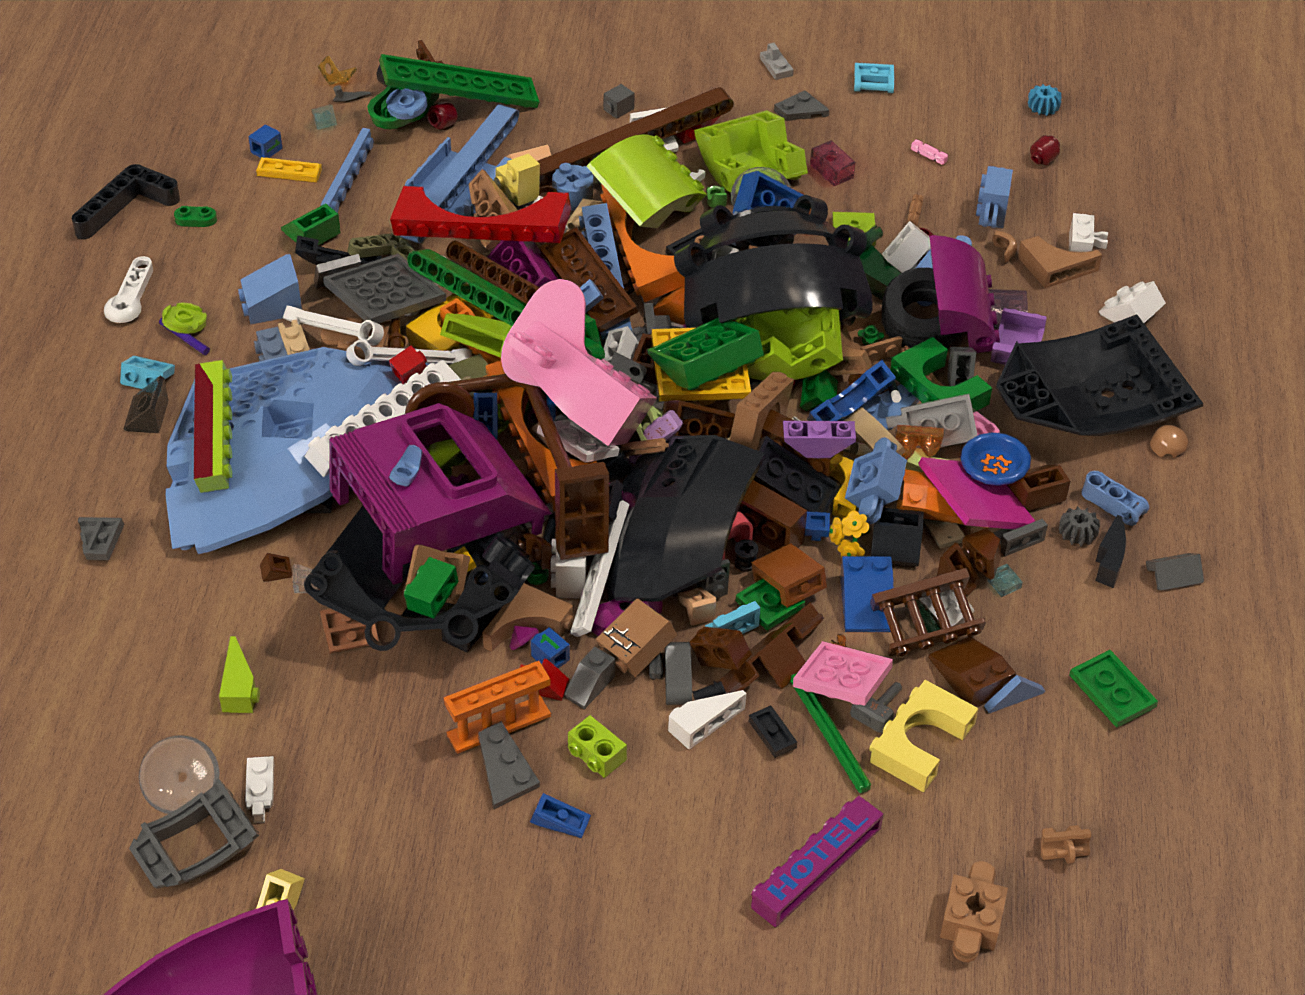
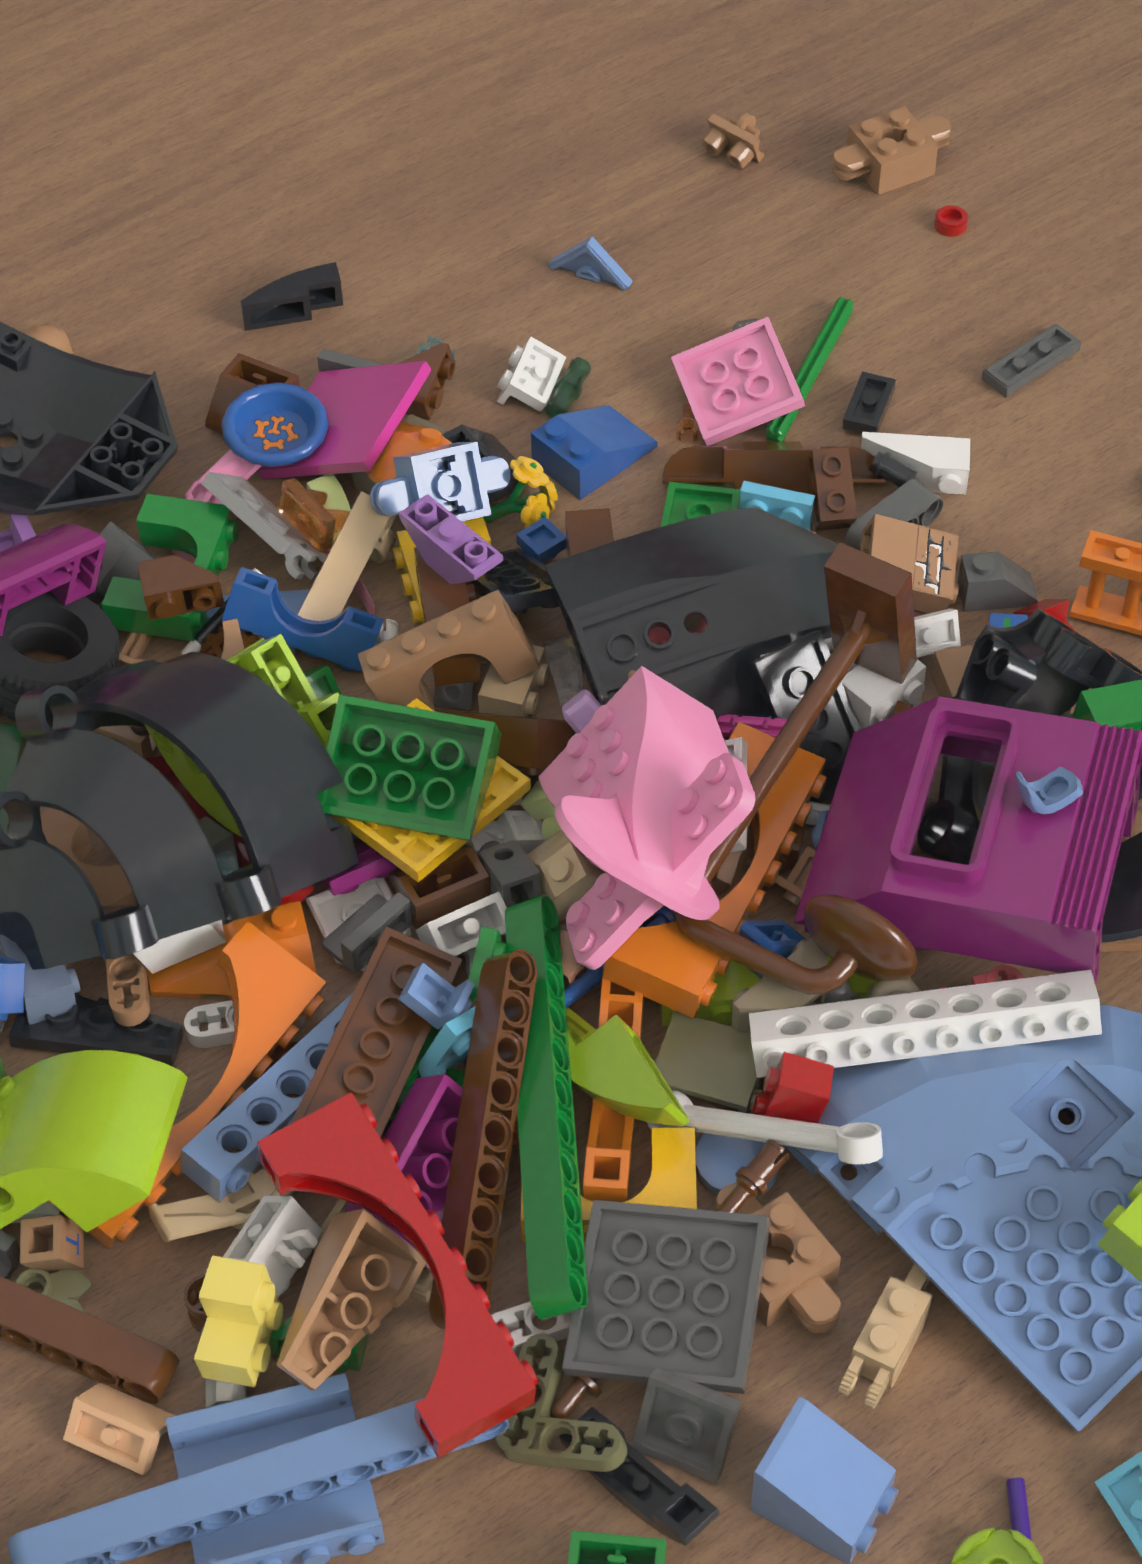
camera: 130 degrees left, 5 degrees up
(269, 344) = (928, 1361): sand blue brick -> none
(338, 325) = (809, 1284): white piece -> none
(575, 181) = (143, 1287): medium blue brick -> none
(599, 743) = (1070, 513): lime brick -> none
(729, 840) = (1031, 360): none -> dark grey tile
(790, 573) = (652, 496): dark orange panel -> none
(816, 861) = (975, 277): magenta brick -> none
(885, 902) = (951, 221): none -> red tile
(908, 351) = (178, 587): none -> reddish brown slope
(925, 707) = (696, 315): light yellow arch -> none
(932, 589) = (565, 380): reddish brown fence -> none
(954, 560) = (471, 401): reddish brown slope -> none
(972, 670) = (597, 308): reddish brown slope -> none
(1079, 526) = (282, 341): dark grey gear -> none
(1113, 688) = (494, 206): green plate -> none
(1114, 497) = (203, 341): medium blue piece -> none
(1176, 570) = (258, 247): dark grey panel -> none

